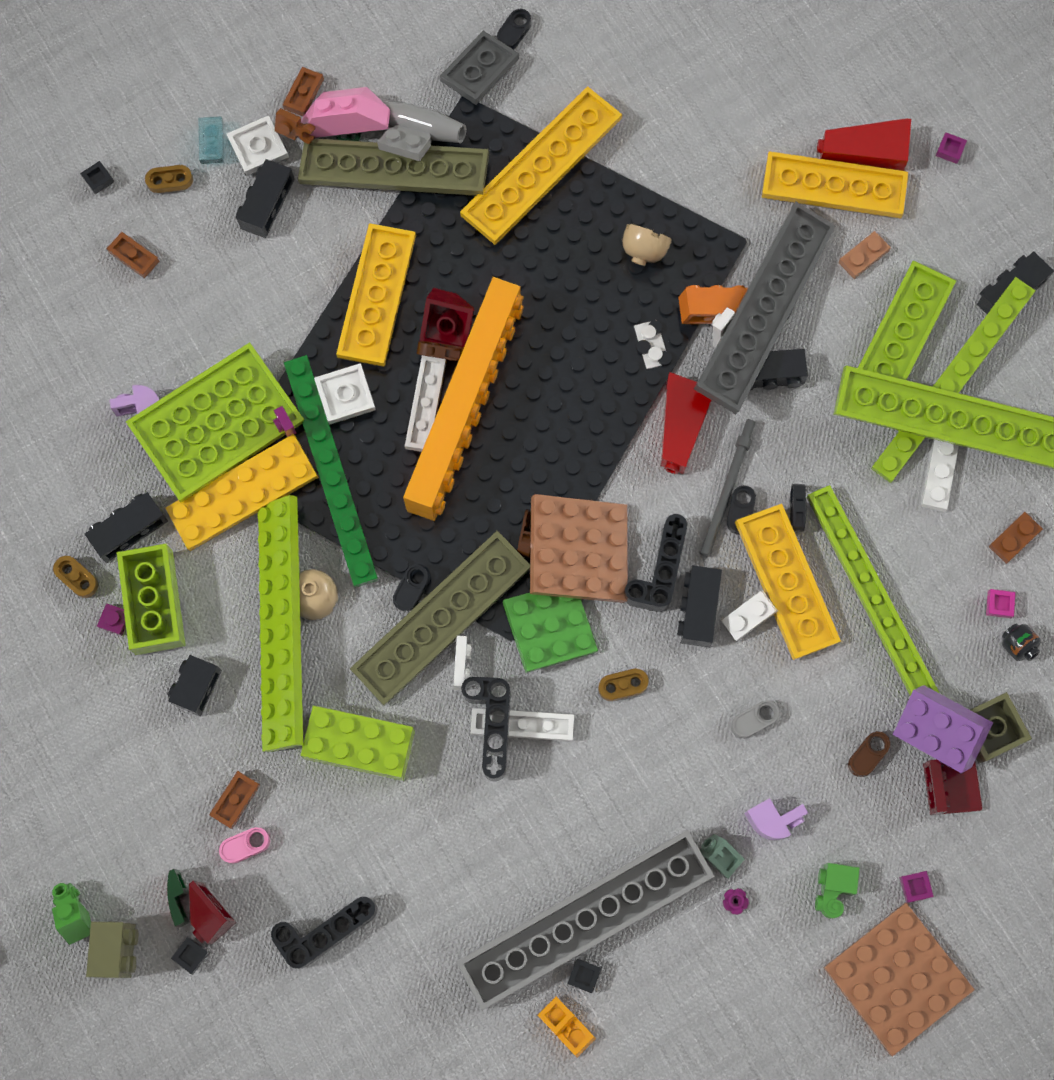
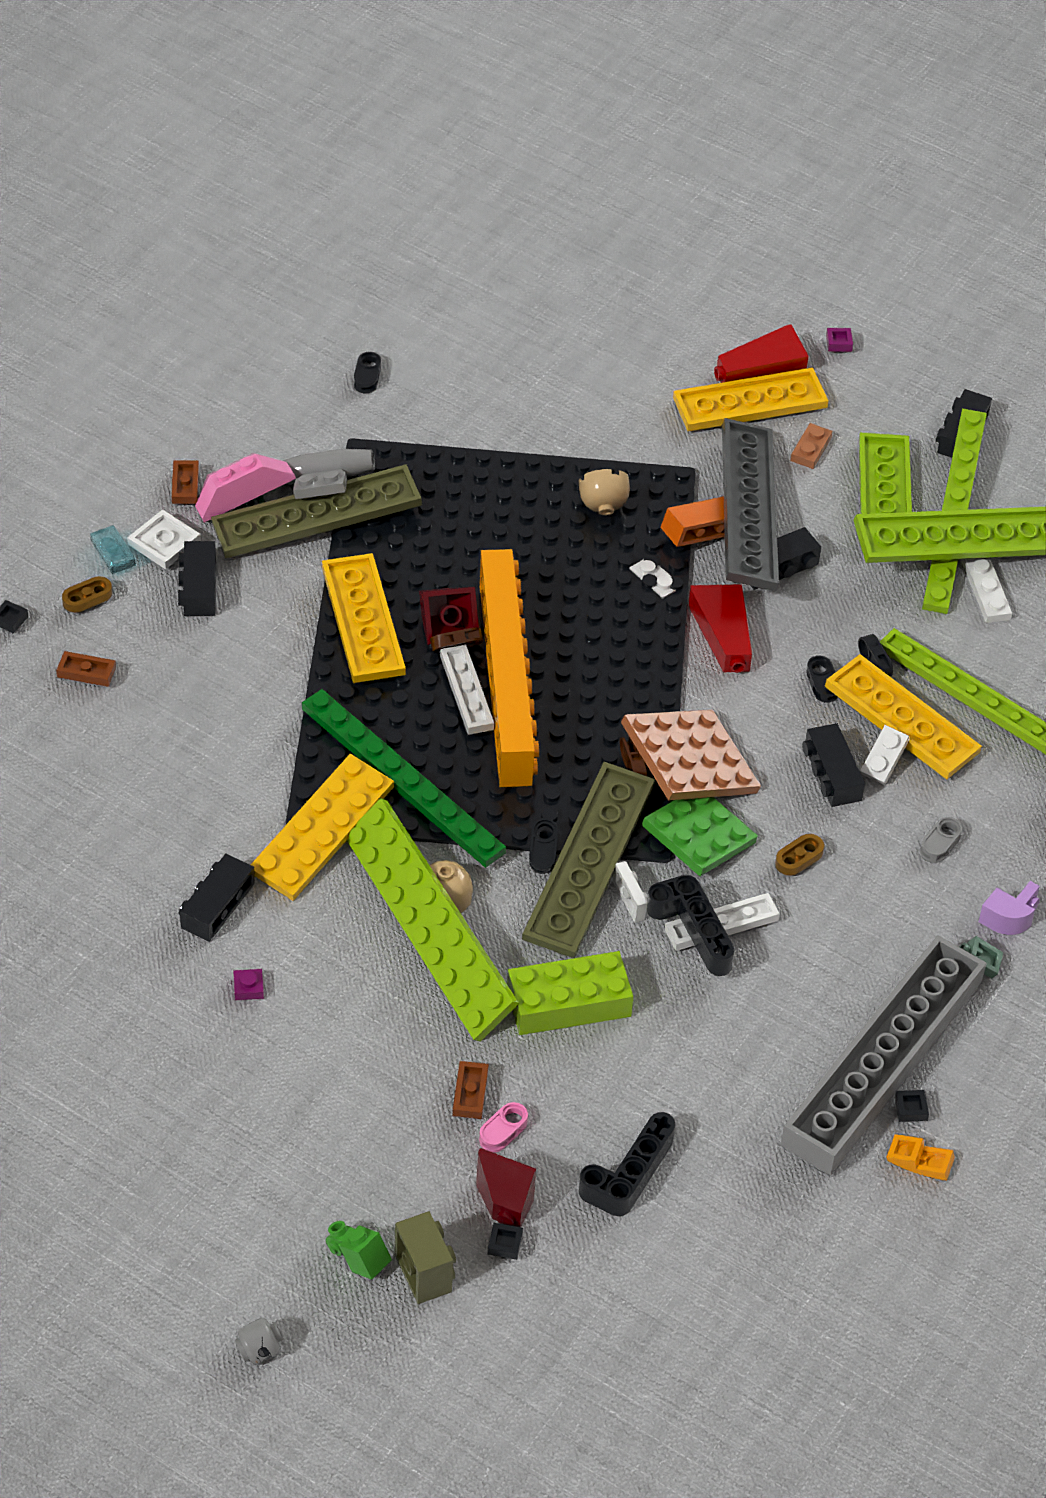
camera: 30 degrees left, 25 degrees down
(76, 578) = (187, 960): pearl gold plate -> none
(128, 404) = (172, 786): lavender brick -> none
(151, 599) = (283, 945): lime brick -> none
(175, 890) = (457, 1188): dark green slope -> none
(194, 685) = (370, 1006): black brick -> none
(213, 422) = (261, 772): lime plate -> none
(283, 422) = (338, 741): magenta plate -> none
(291, 126) = (193, 506): dark orange plate -> none
(344, 393) = (381, 707): white plate -> none
(479, 67) = (353, 409): dark grey plate -> none
(541, 165) = (463, 466): yellow plate -> none
(663, 562) = (786, 763): black beam -> none
(720, 324) = (717, 542): white plate -> none
(729, 905) = (1015, 997): magenta plate -> none
(743, 444) = (792, 628): dark grey bar -> none

